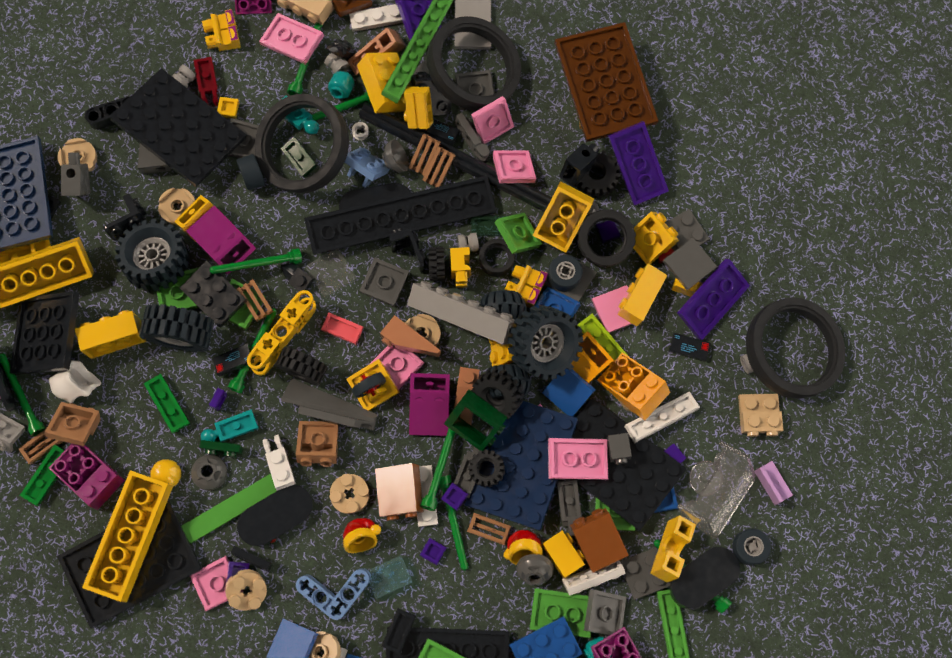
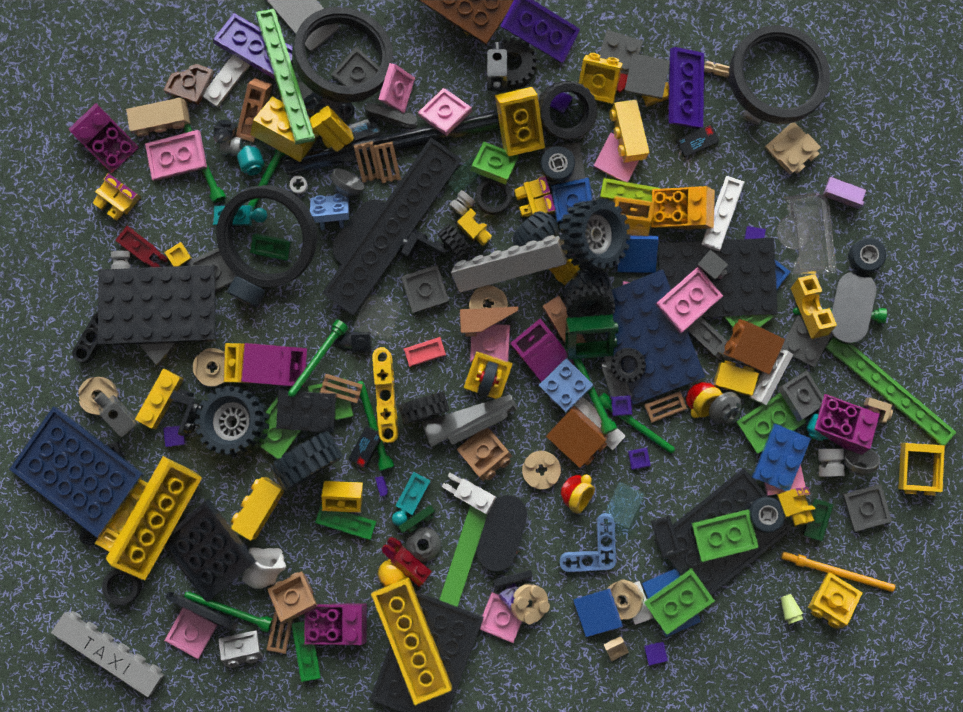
camera: 30 degrees left, 10 degrees up
(100, 234) = (172, 438): none -> dark purple tile
(110, 197) = (159, 399): none -> yellow brick
(180, 380) = (342, 496): none -> yellow brick
(182, 472) = (405, 561): none -> dark red hinge
(425, 443) = (566, 385): none -> medium blue plate
(750, 307) = (718, 69): none -> tan axle

